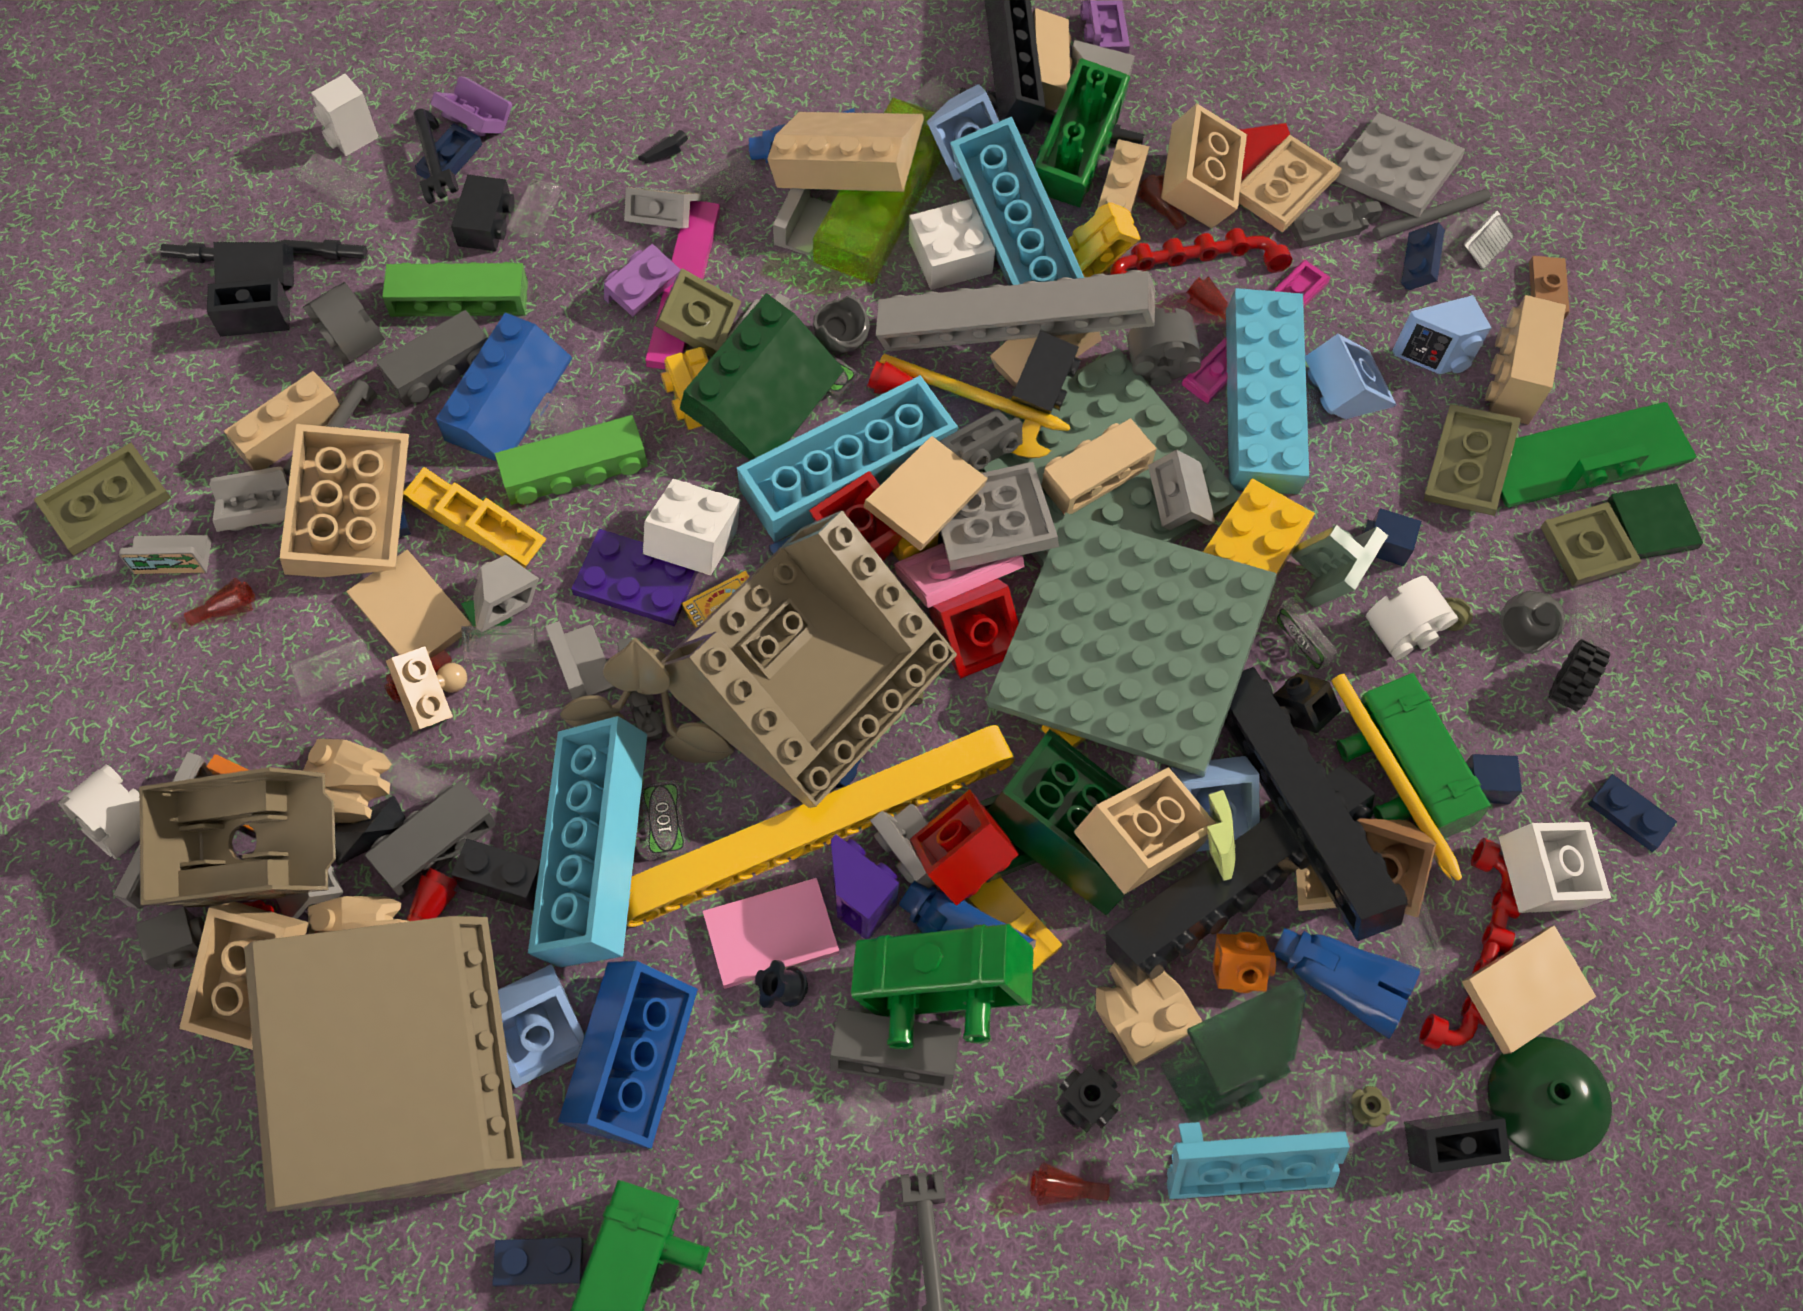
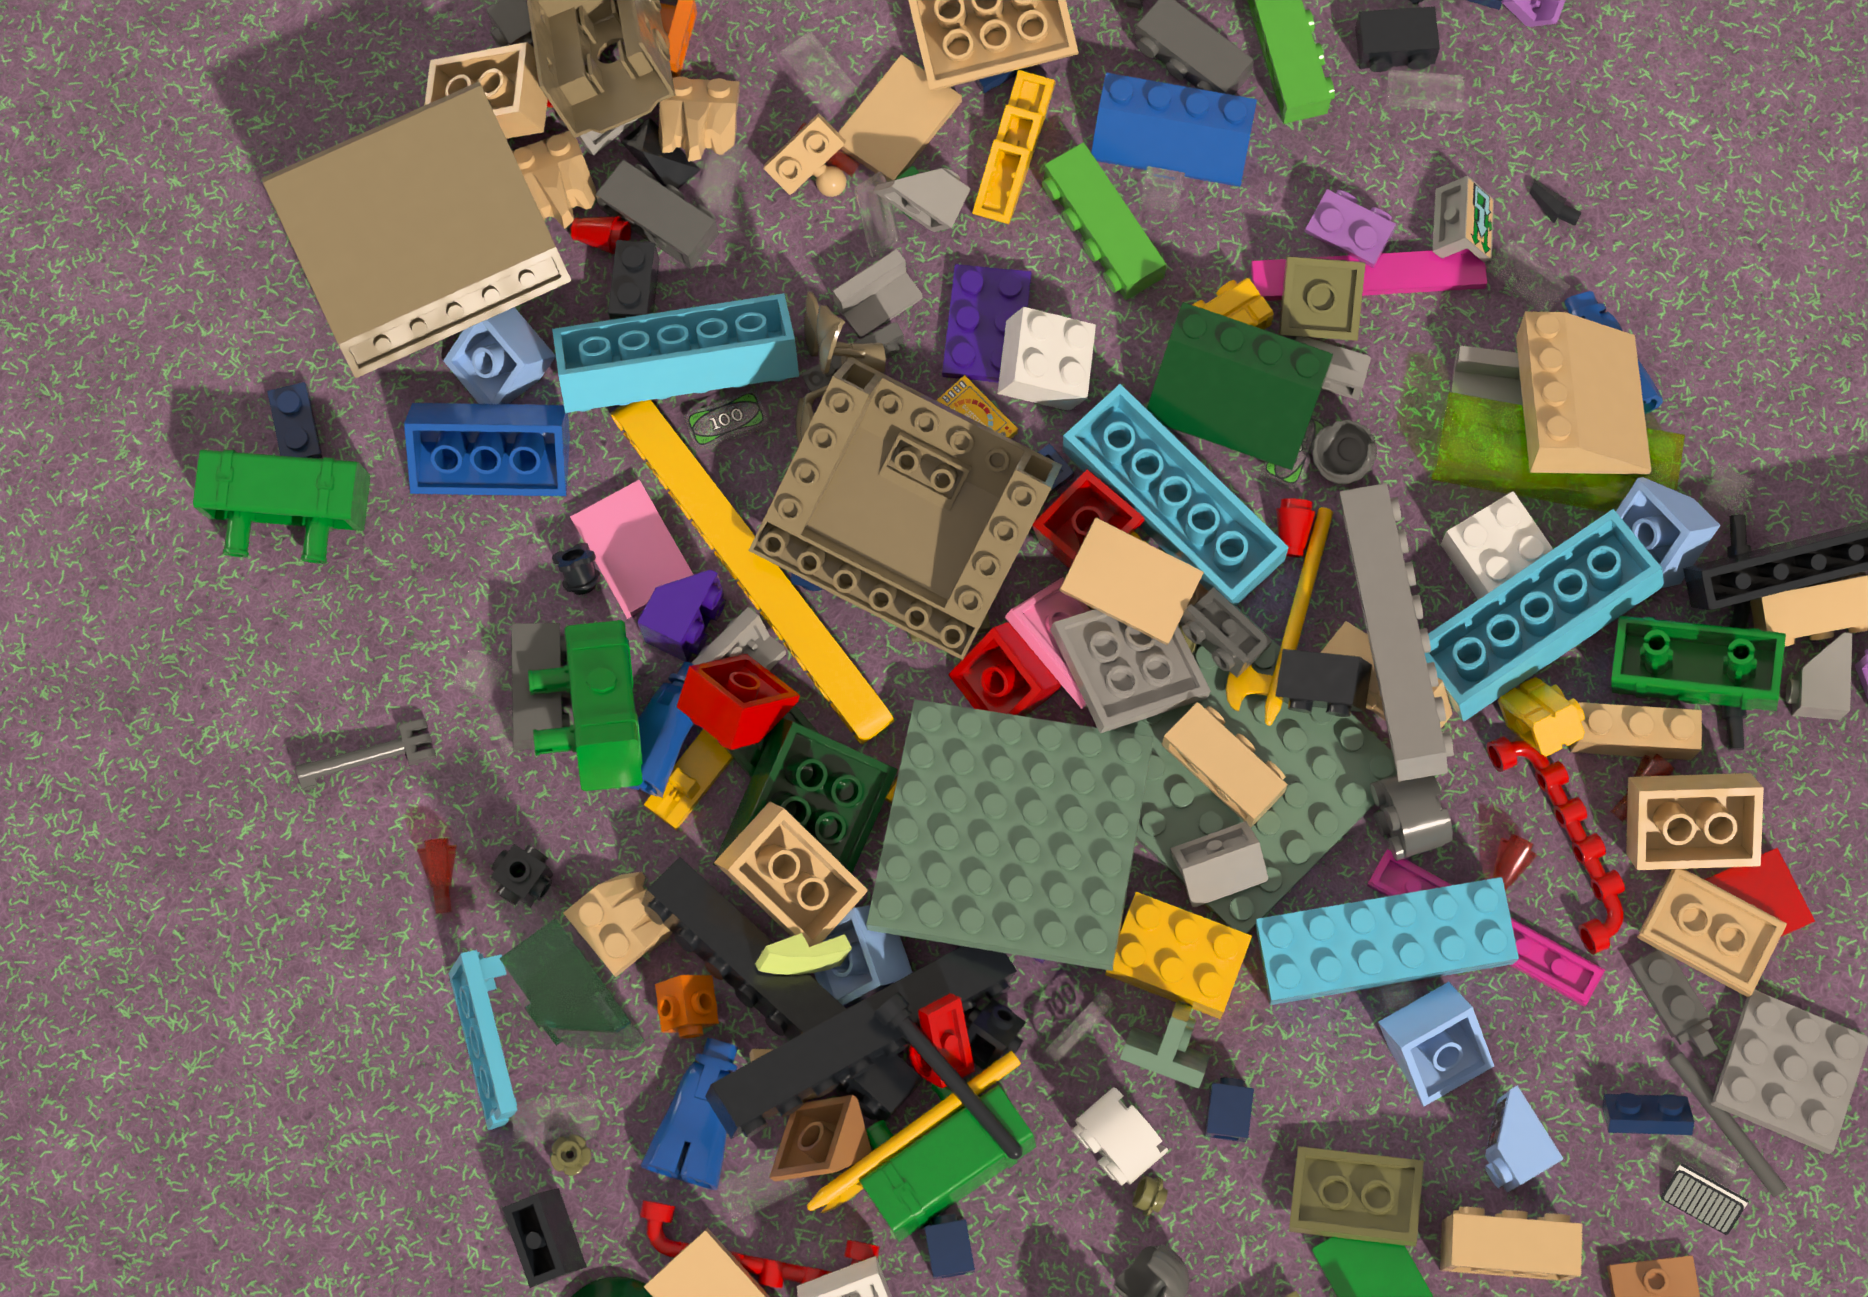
camera: 85 degrees right, 10 degrees up
(1298, 756) = (897, 1016): none -> black piece
(1326, 734) = (946, 1028): none -> red plate

